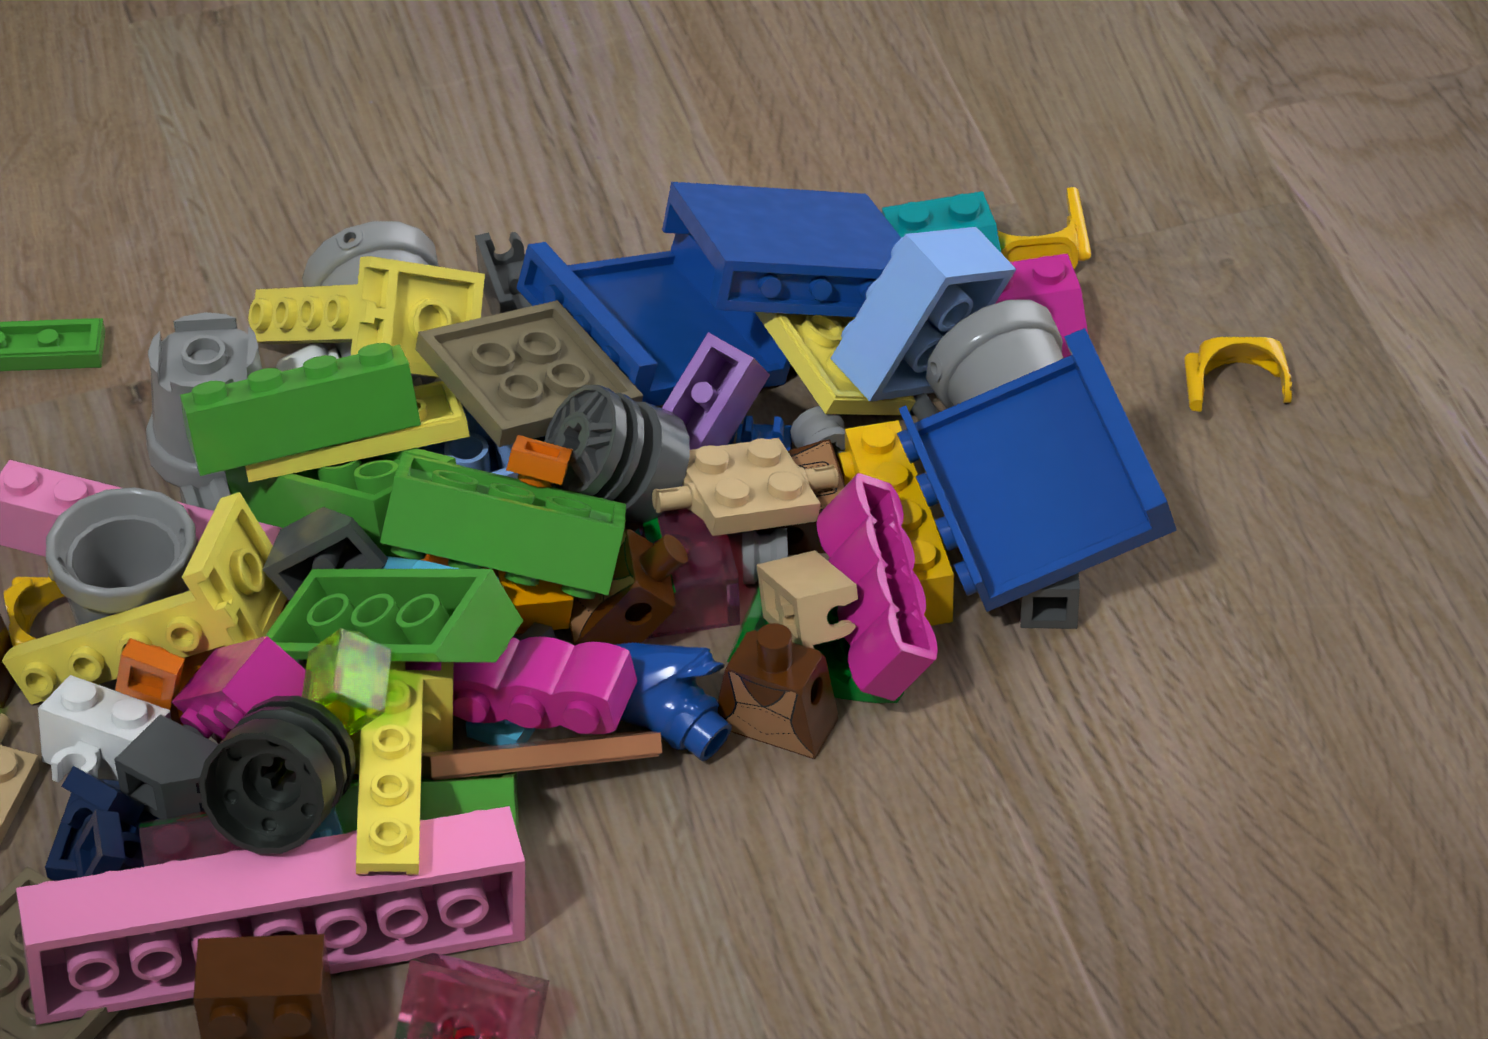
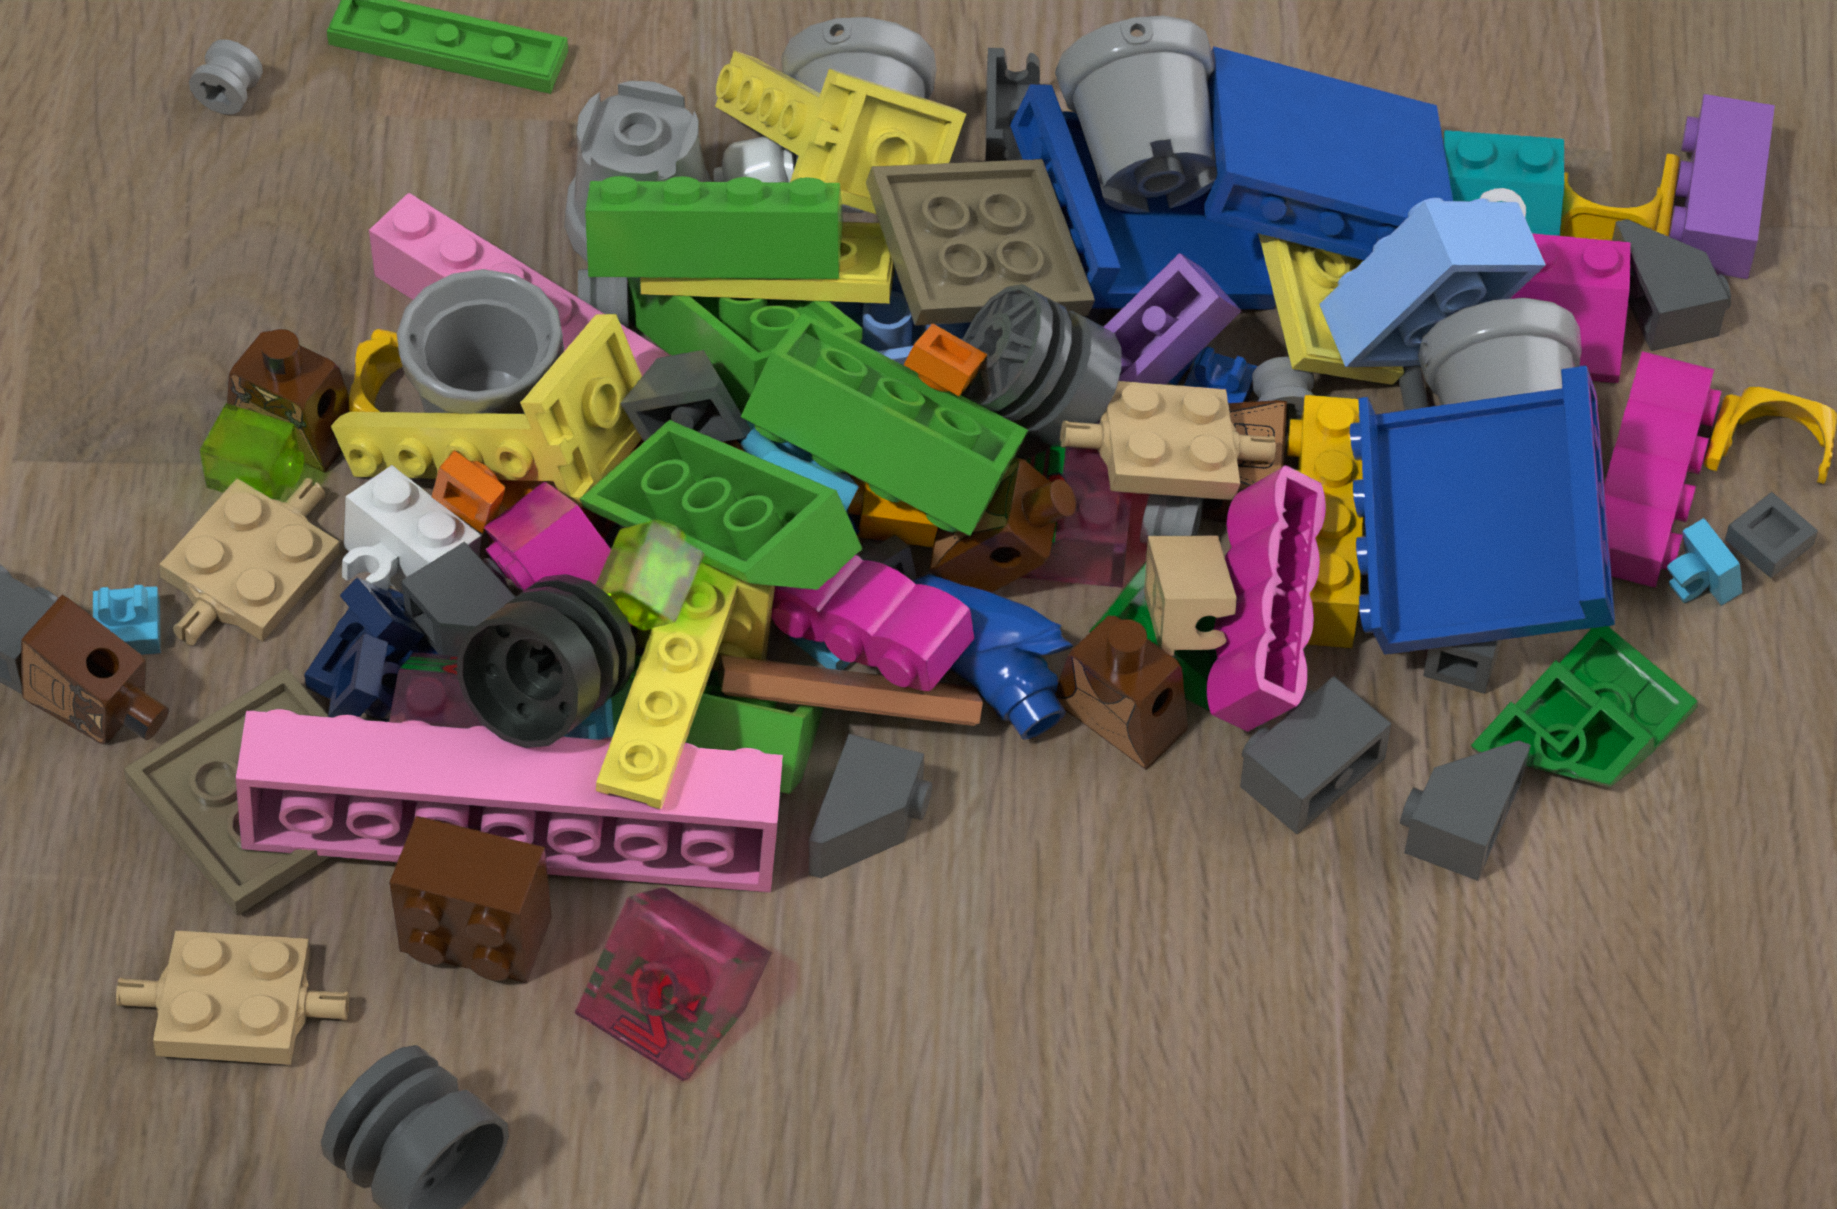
camera: 15 degrees right, 10 degrees up
(588, 842) = (867, 804): none -> dark grey slope
(631, 240) = (1144, 109): none -> light grey piece
(956, 705) = (1314, 754): none -> dark grey brick
(1098, 715) = (1464, 808): none -> dark grey slope
(1115, 285) = (1672, 288): none -> dark grey slope
(1121, 202) = (1724, 181): none -> medium lavender brick
(1146, 378) = (1651, 464): none -> dark pink brick
(1173, 616) = (1593, 712): none -> green slope
(1223, 482) = (1705, 565): none -> medium azure tile
(1265, 447) = (1771, 534): none -> dark grey plate

